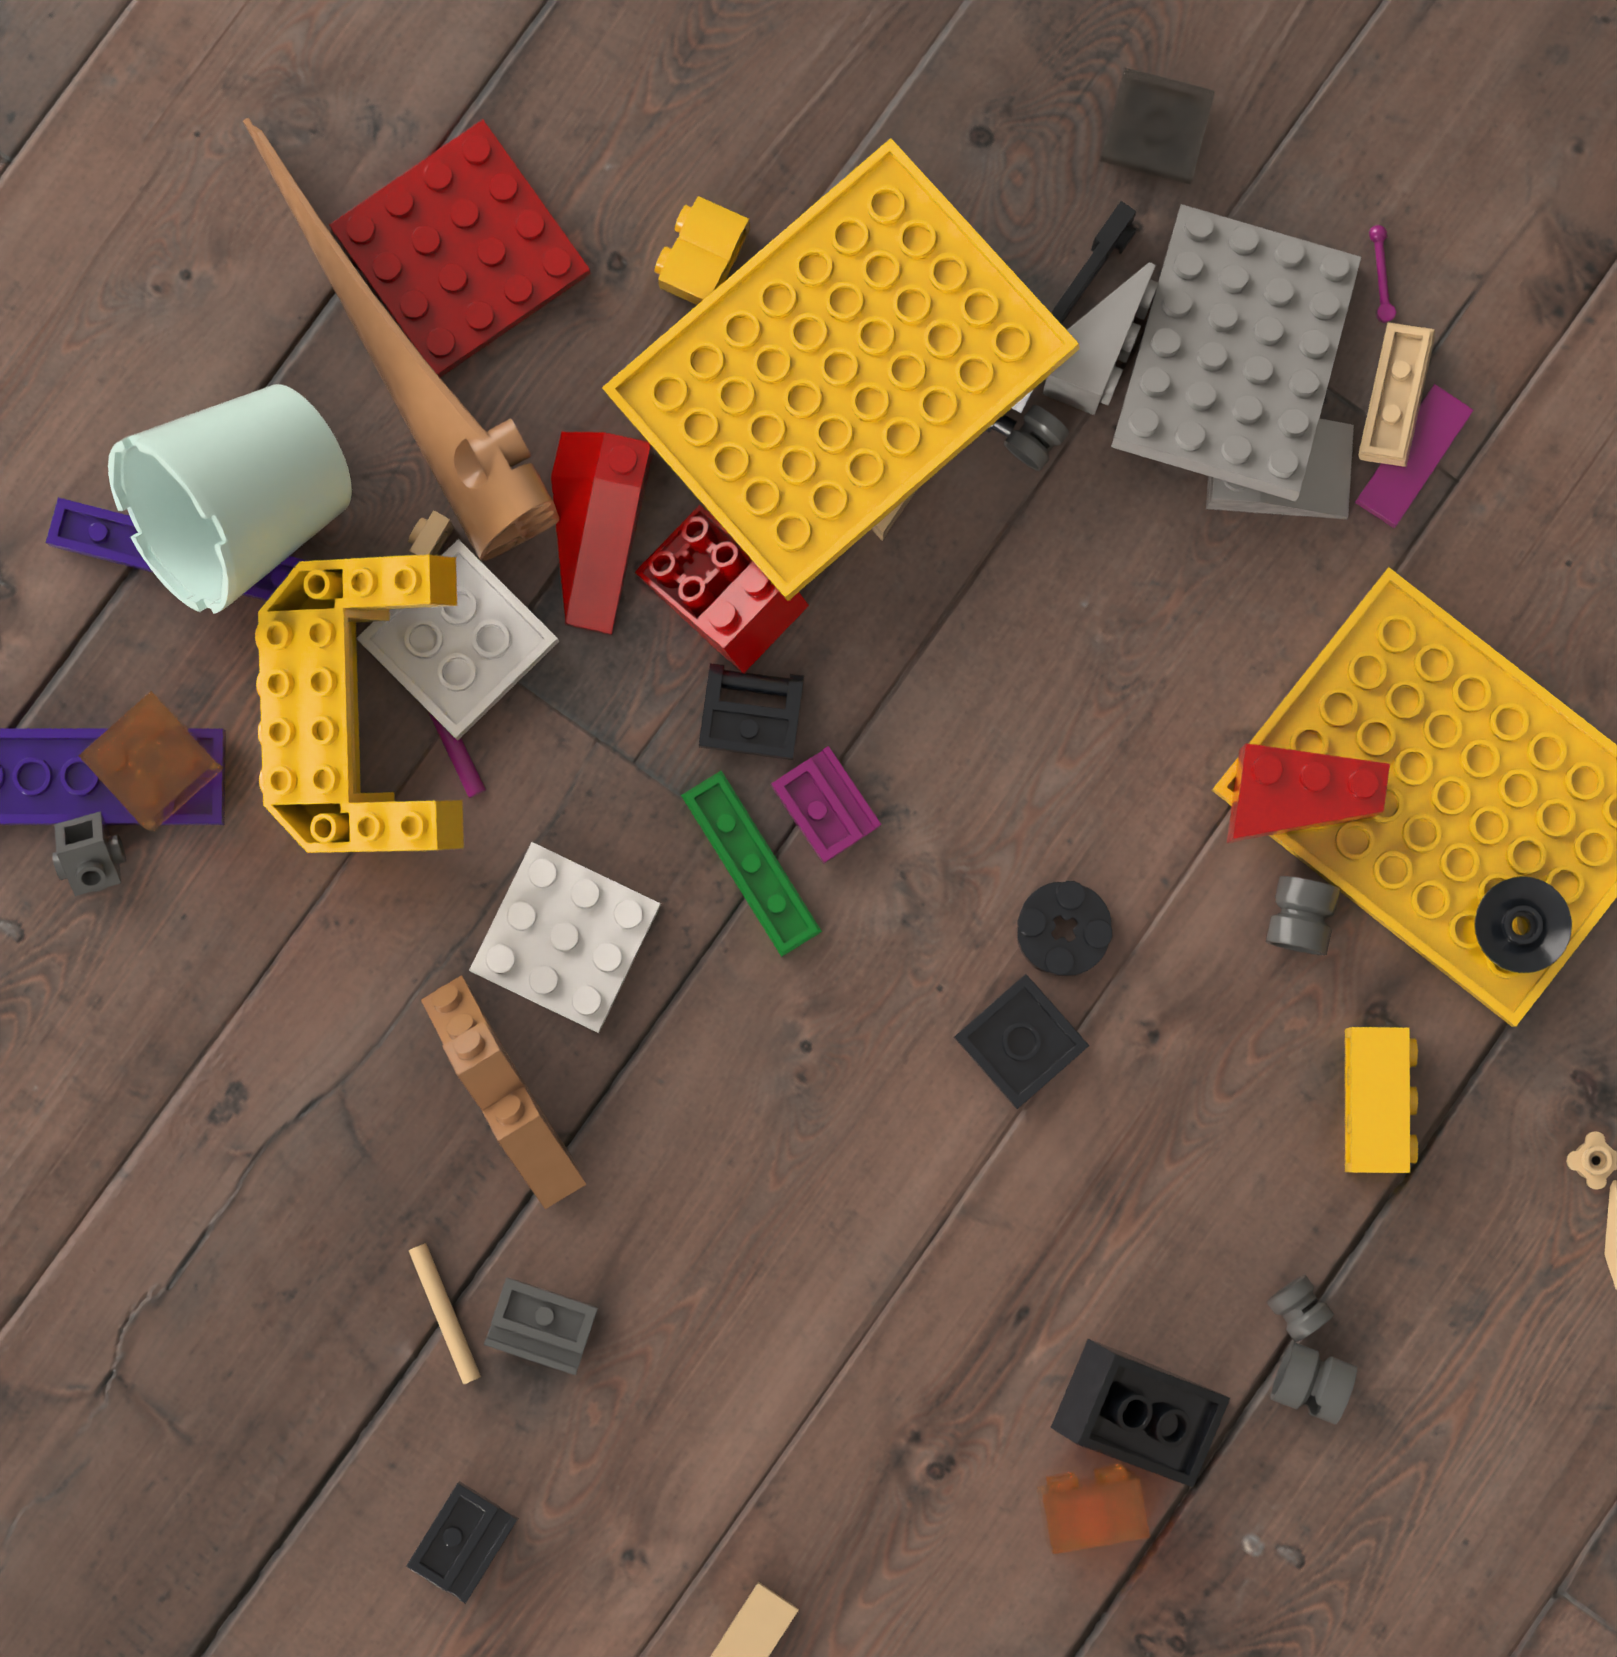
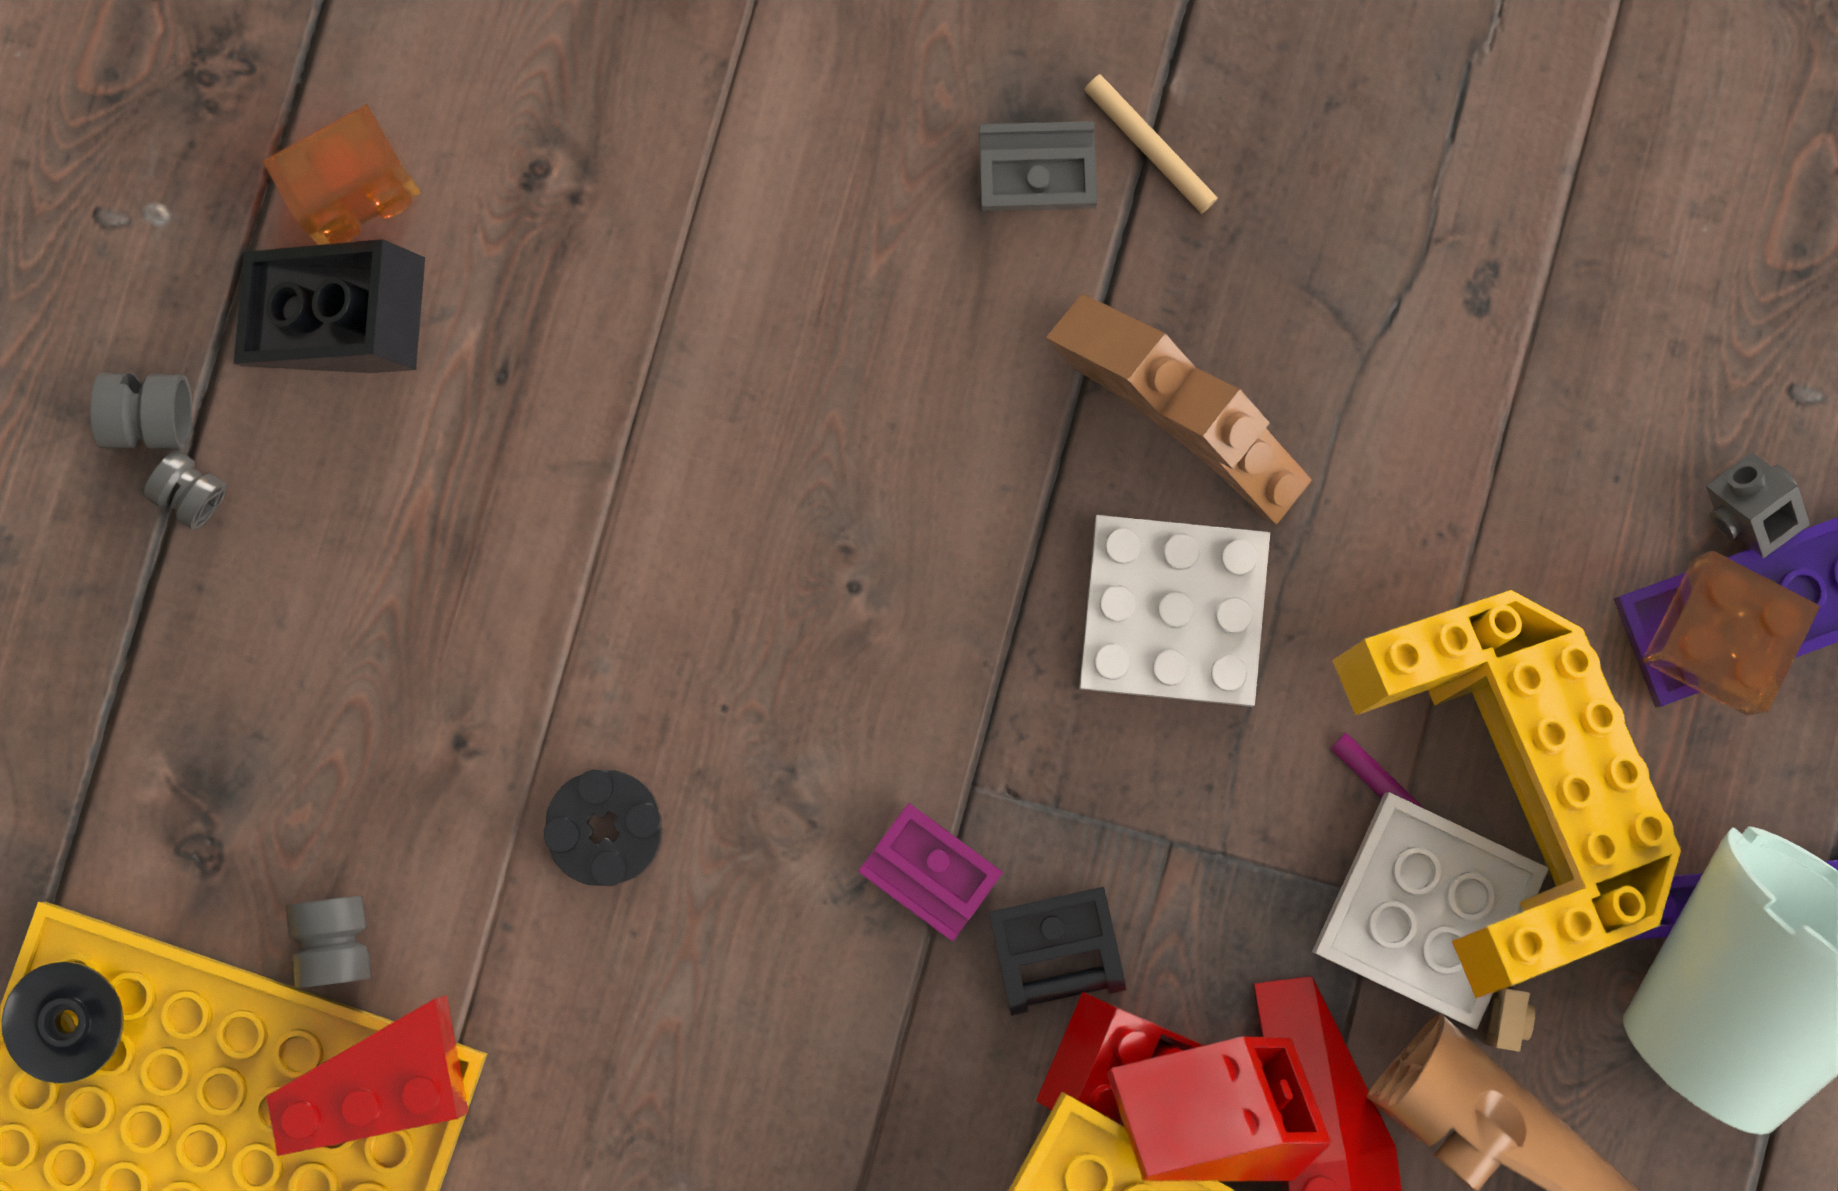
camera: 160 degrees right, 0 degrees up
(675, 544) = (1221, 1112): none -> slope
(751, 863) = (992, 773): green tile -> none
(1021, 1041) = (607, 679): black plate -> none
(1379, 1100) = (170, 758): yellow brick -> none

